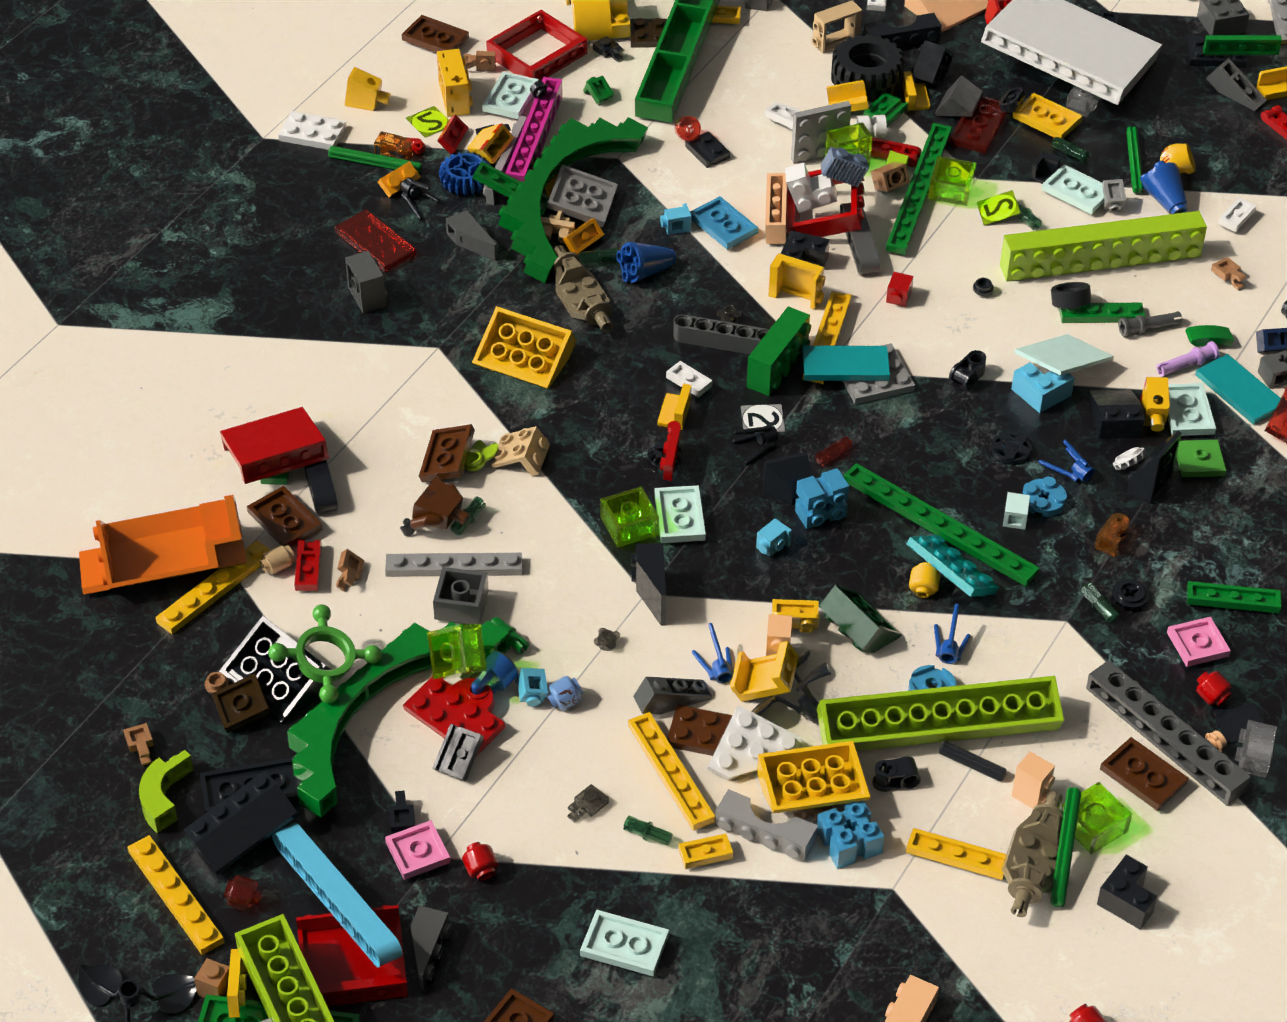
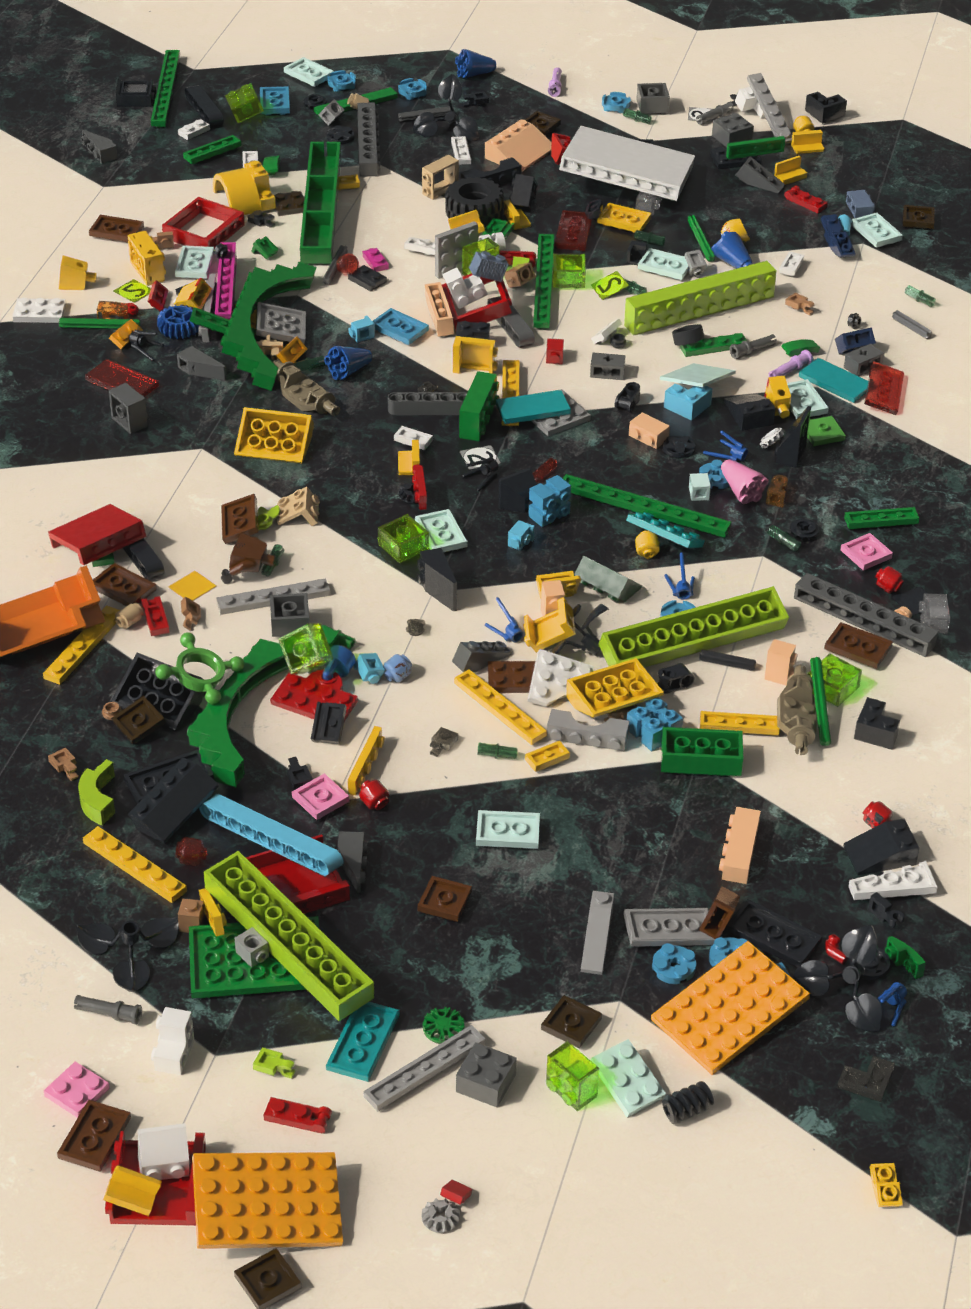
camera: 15 degrees left, 5 degrees down
(365, 532) = (192, 586): none -> yellow sticker
(486, 810) = (364, 762): none -> yellow plate
(669, 131) = (332, 270): none -> dark grey axle
(725, 126) = (375, 259): none -> dark pink plate
(894, 886) = (702, 751): none -> green brick
(957, 321) = (607, 366): none -> dark grey brick
(960, 99) = (553, 214): flat silver slope -> none
(978, 269) = (610, 329): none -> white plate
(979, 420) = (648, 430): none -> light nougat brick
(1072, 516) = (744, 481): none -> bright pink cone

